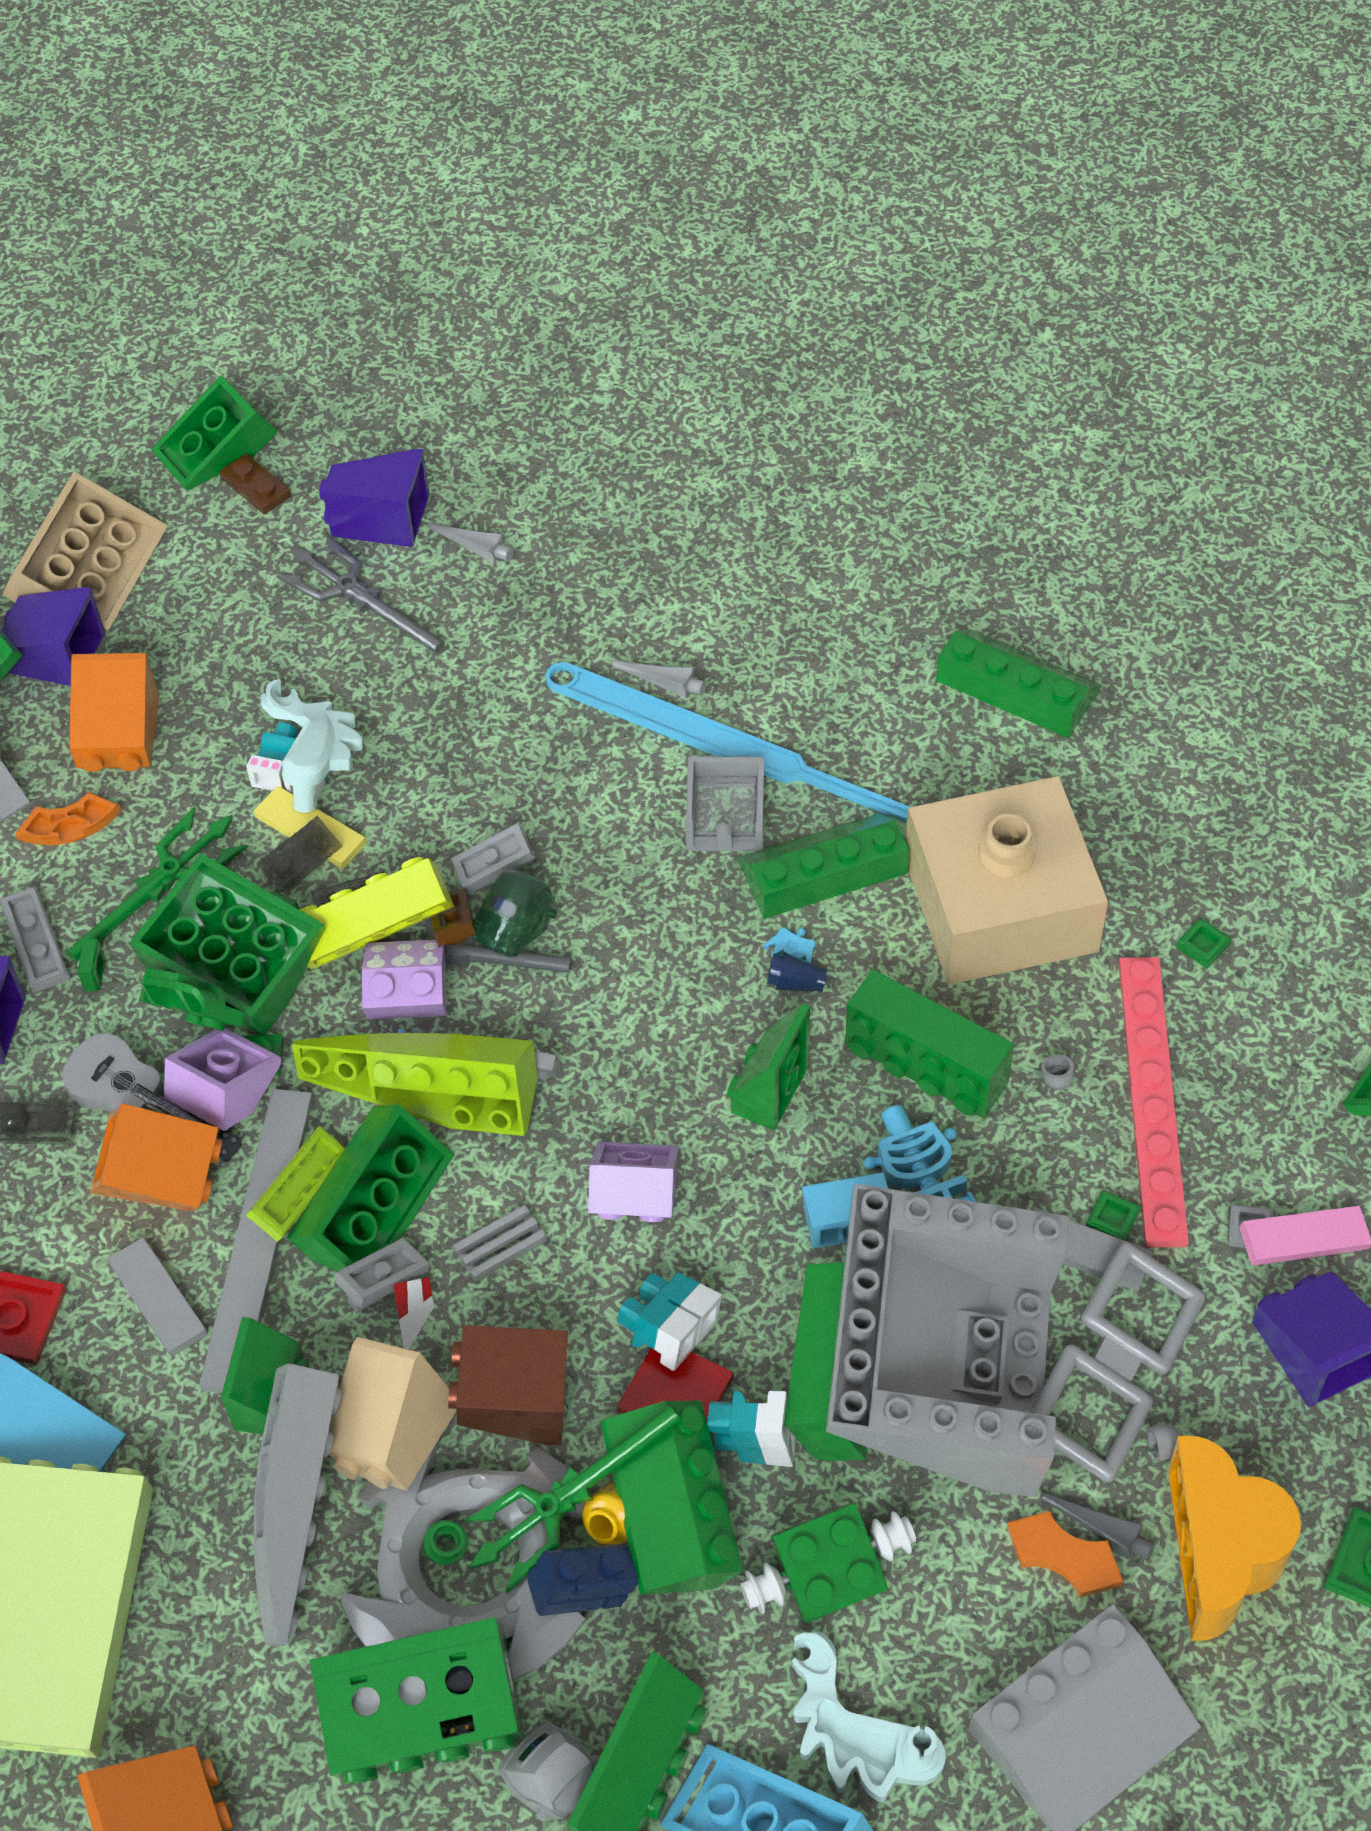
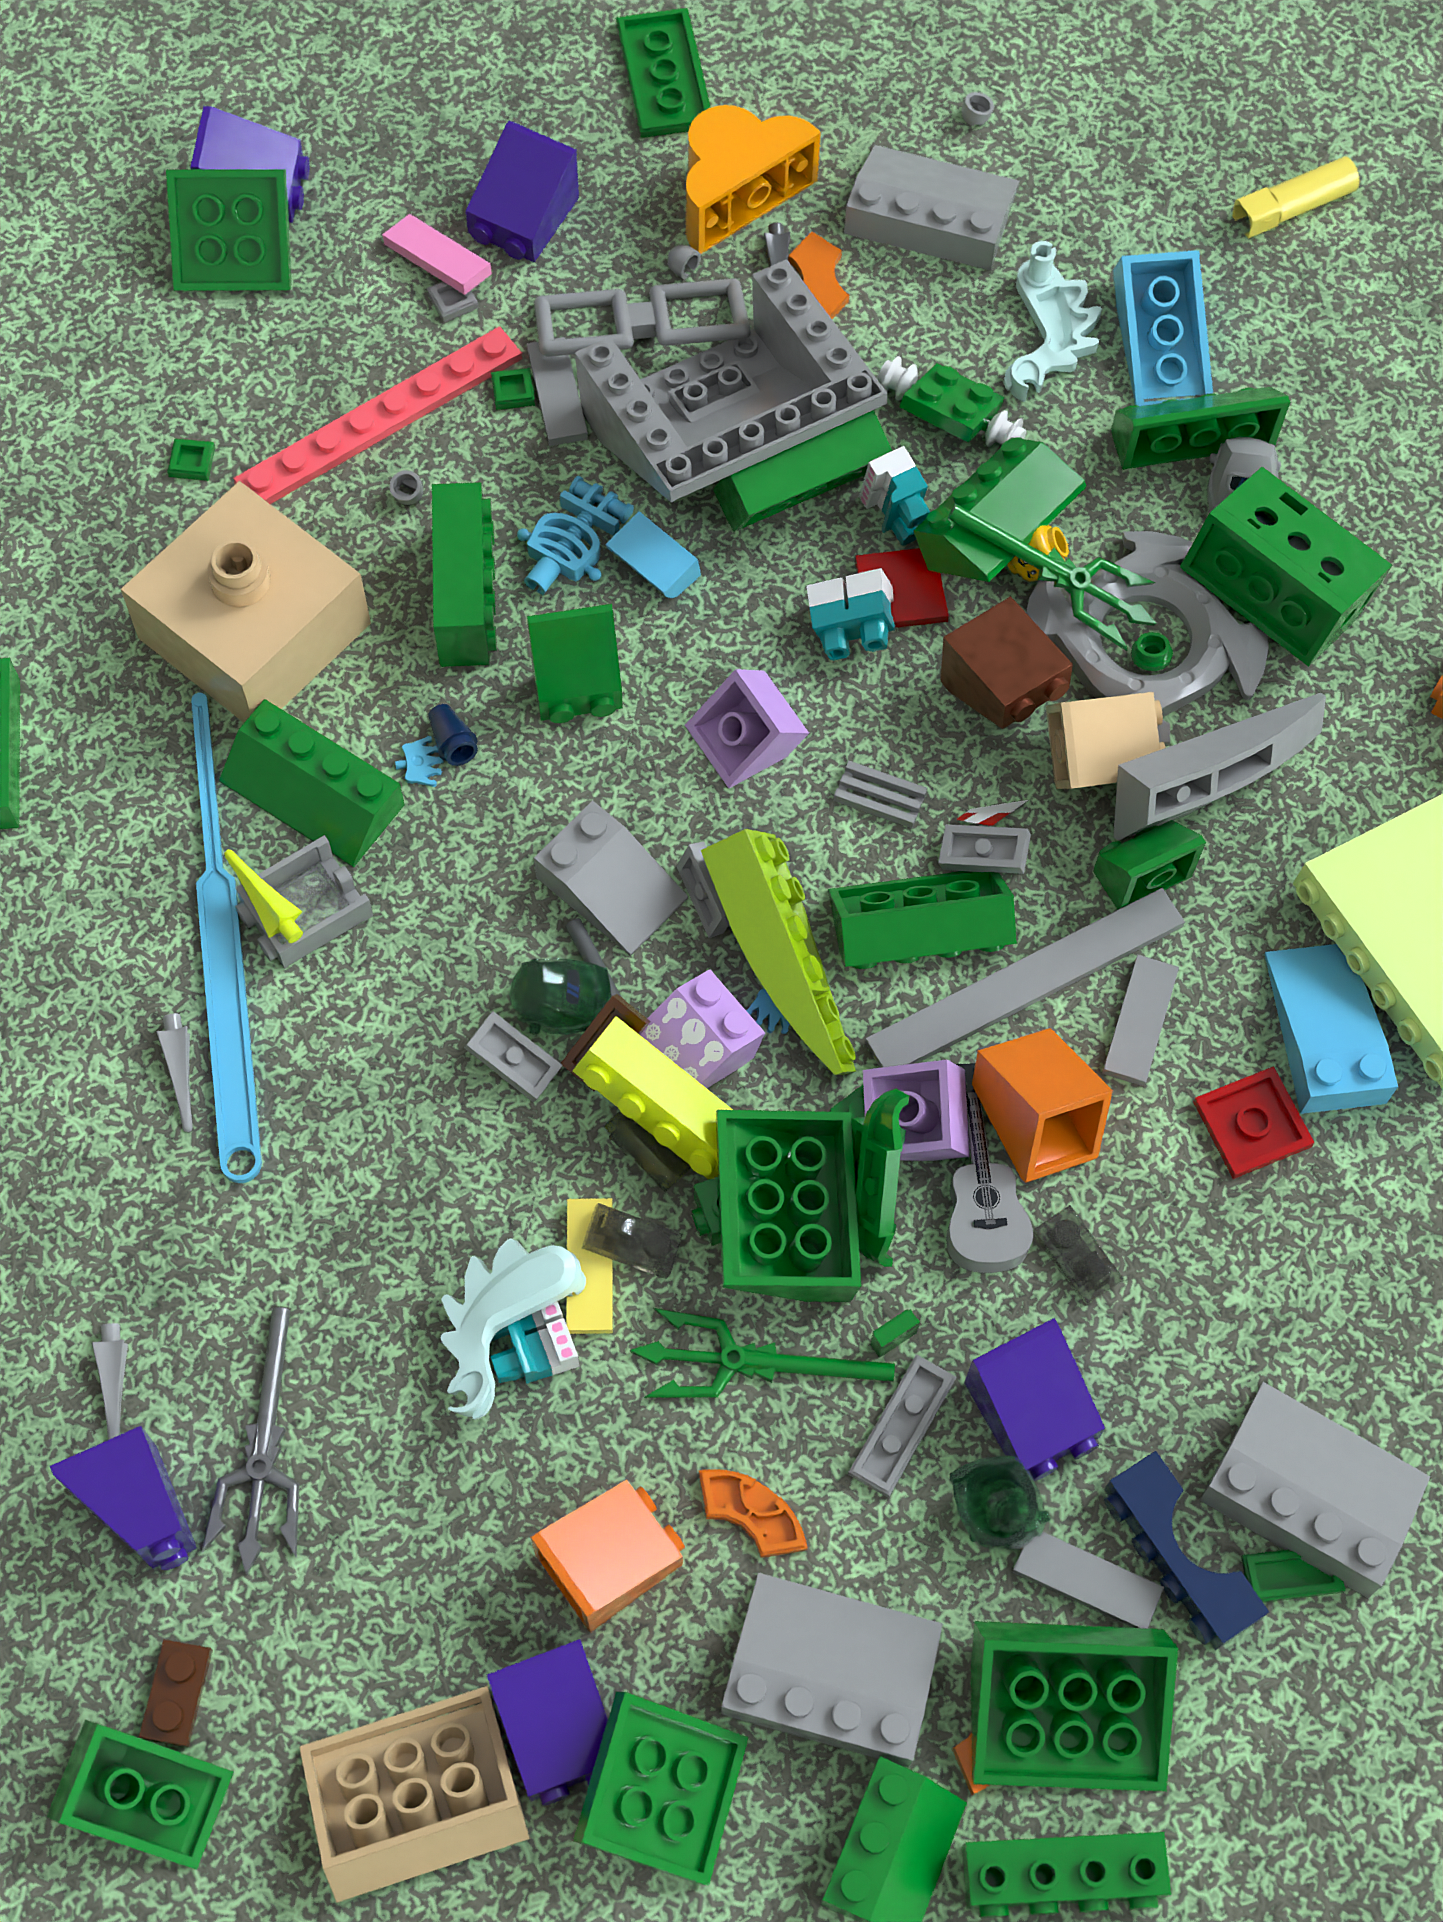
camera: 130 degrees left, 10 degrees up
(296, 1184) = (961, 972): lime plate -> none
(582, 1579) = (1108, 529): dark blue brick -> none
(583, 1002) = (608, 878): none -> light grey slope
(720, 765) = (273, 909): none -> neon yellow piece

